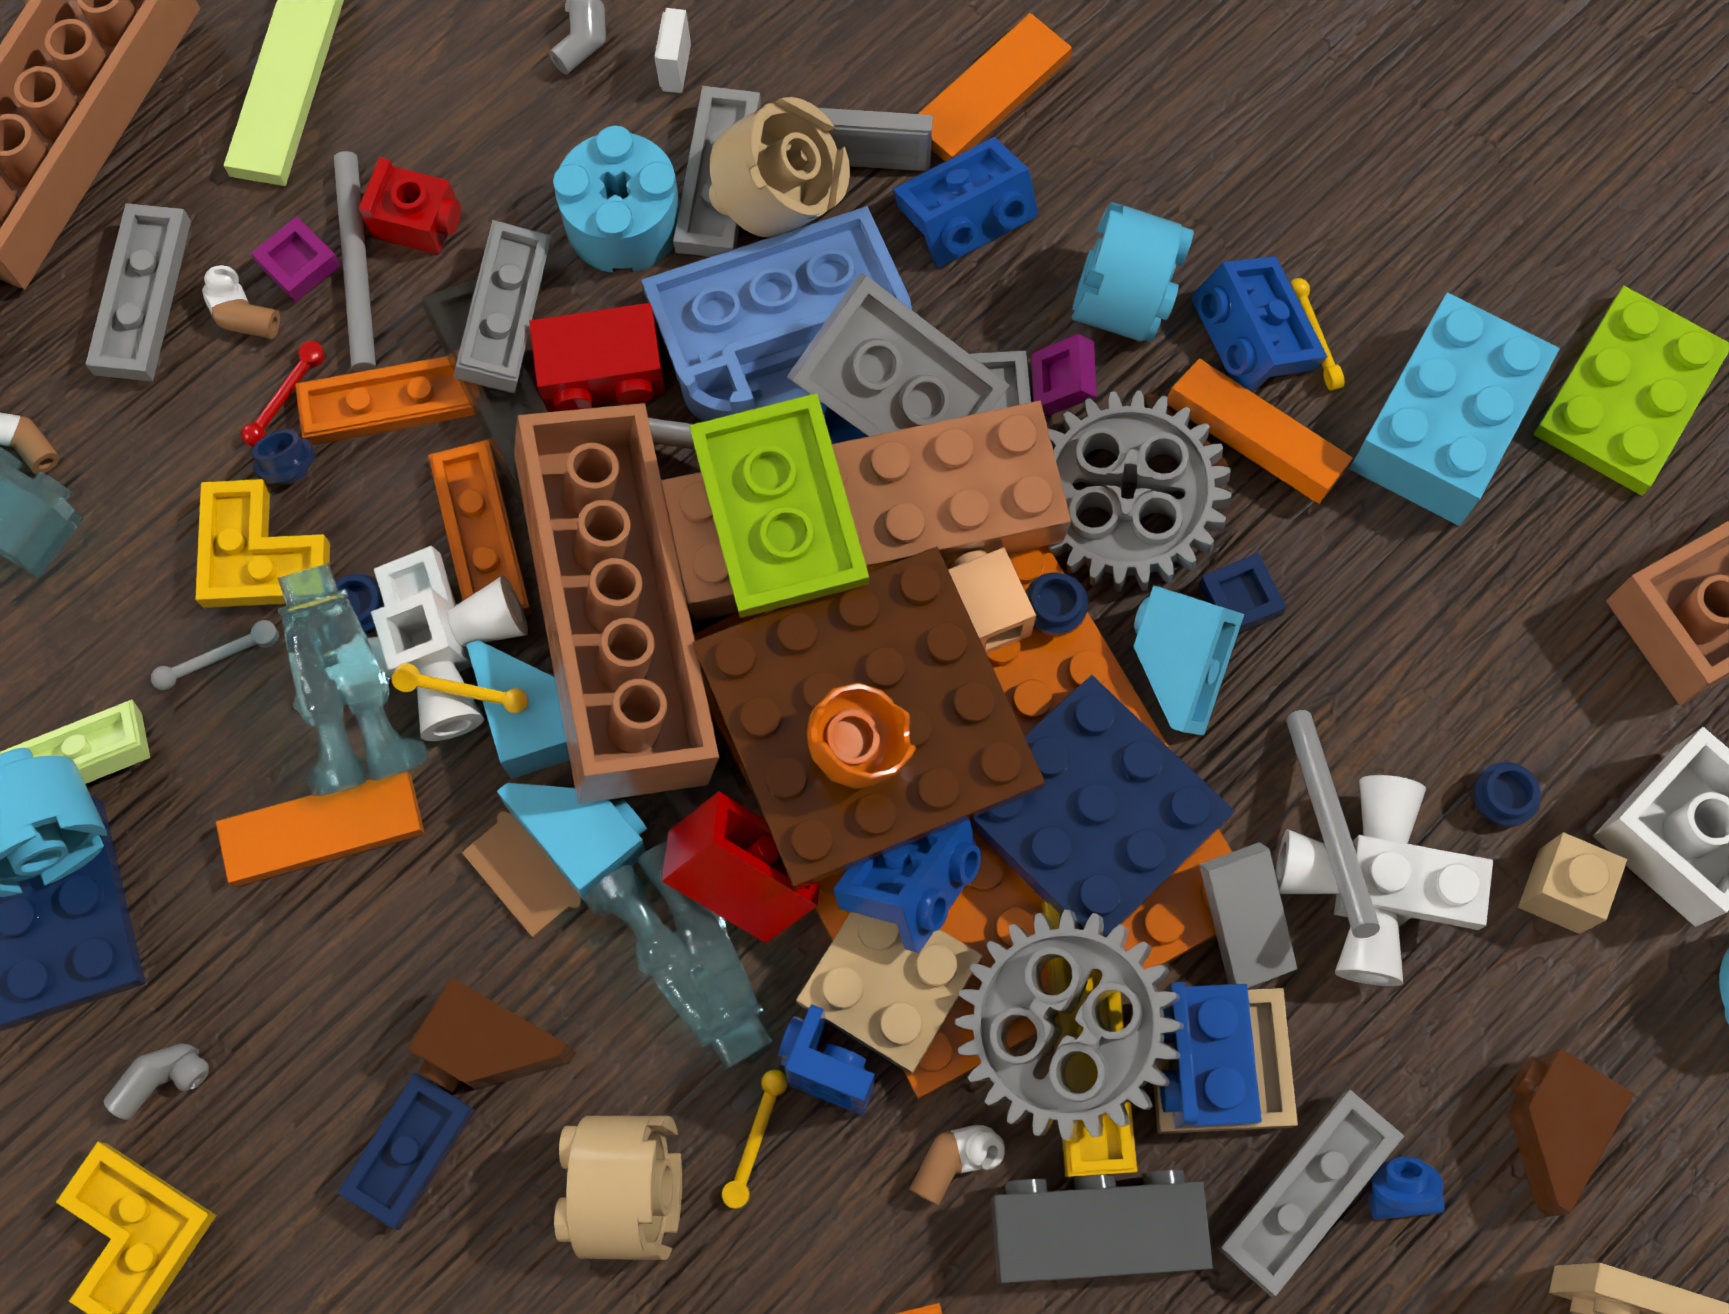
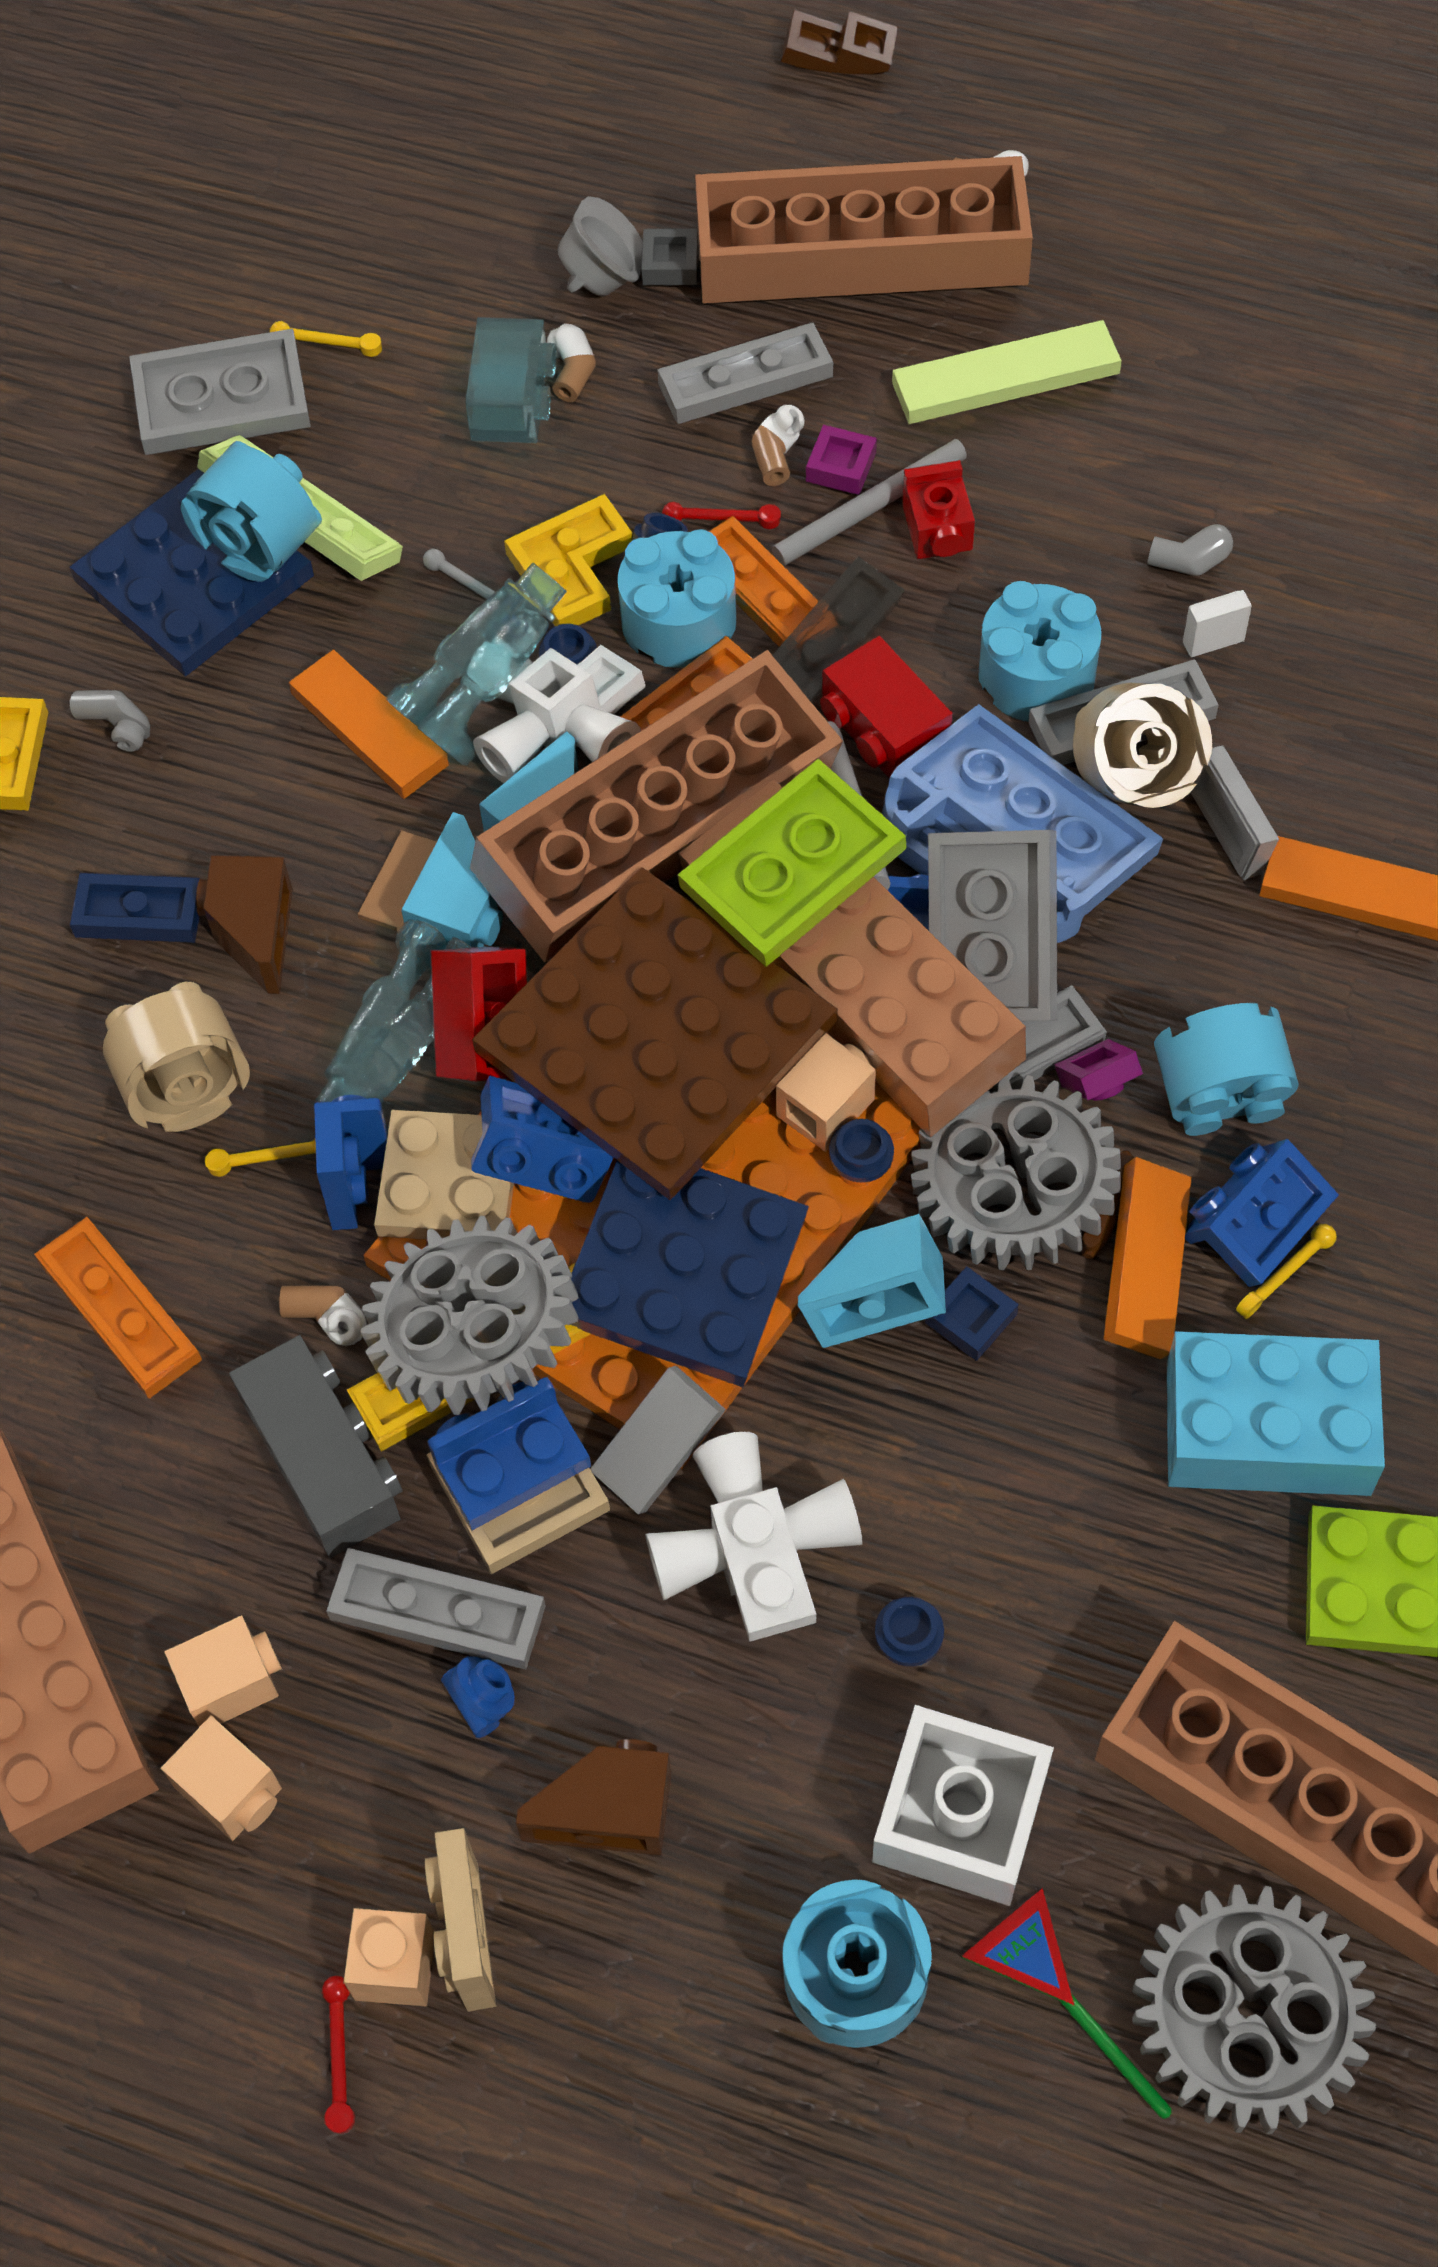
camera: 65 degrees right, 10 degrees down
(365, 474) = (676, 595): none -> medium azure brick
(407, 677) = (509, 700): yellow hinge -> none
(502, 307) = (895, 611): light grey tile -> none
(859, 736) = (614, 1007): orange hair -> none
(968, 200) = (1224, 918): blue bracket -> none
(1333, 825) = (779, 1465): light grey bar -> none
(1572, 883) = (844, 1714): tan brick -> none

